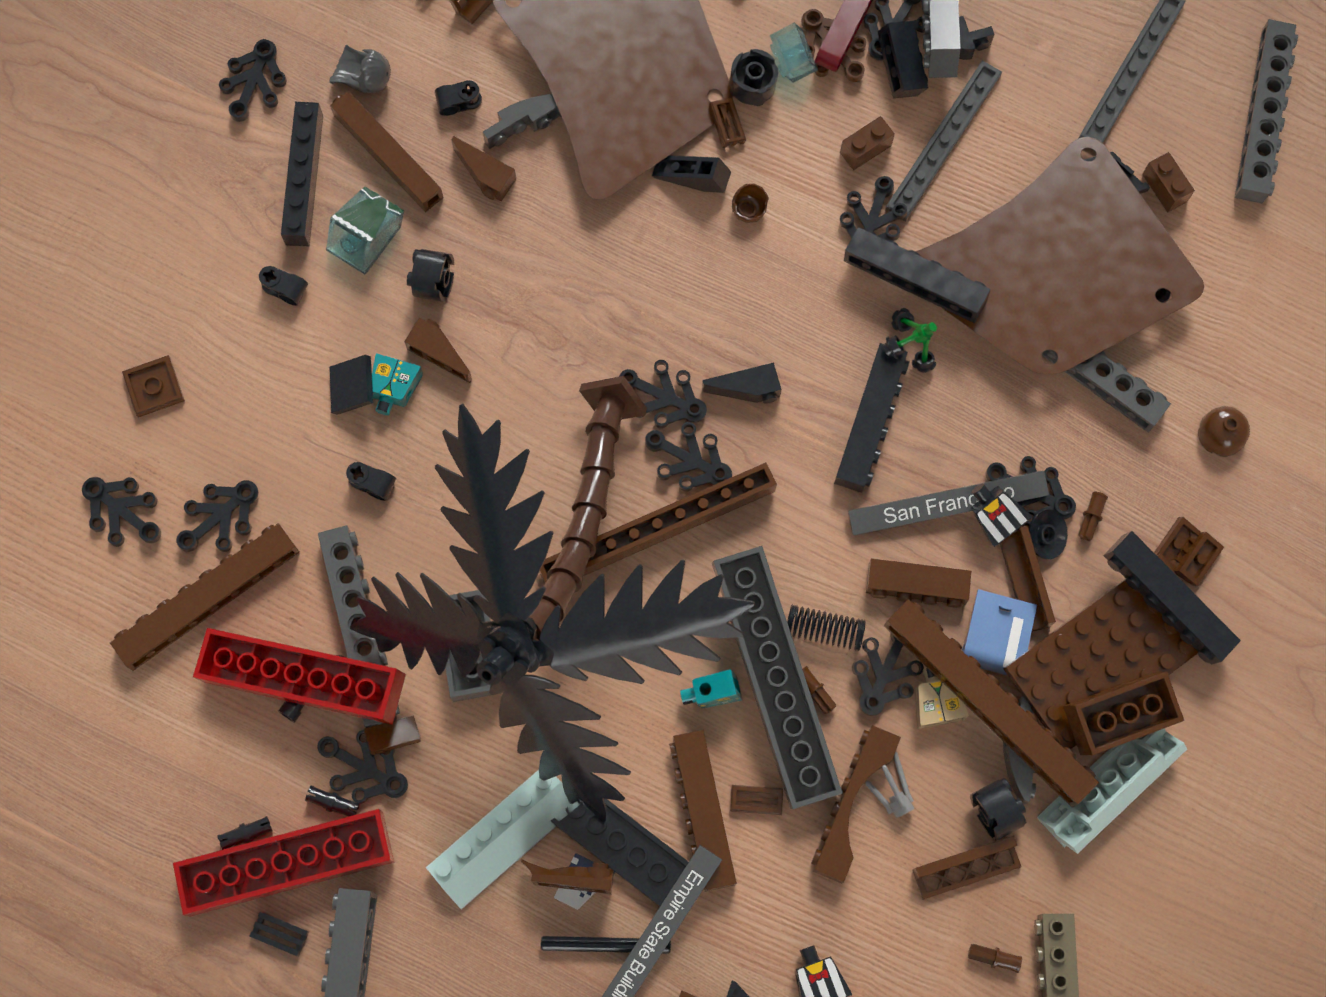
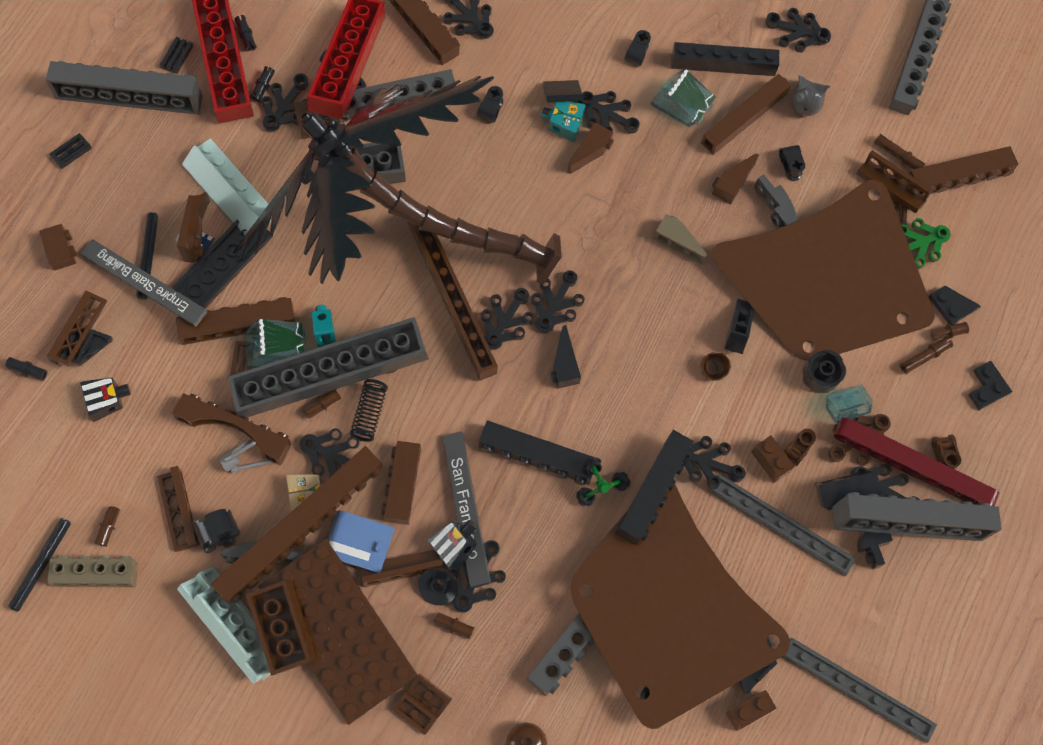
camera: 85 degrees right, 5 degrees down
(379, 330) = (608, 111): none -> black plant
(431, 274) = (647, 140): black brick -> none
(568, 243) = (677, 237): none -> dark tan slope
(719, 125) = (770, 358): reddish brown tile -> none
(739, 755) = (273, 341): none -> slope
(853, 114) = (798, 448): none -> reddish brown piece
(1171, 598) = (375, 677): black brick -> none

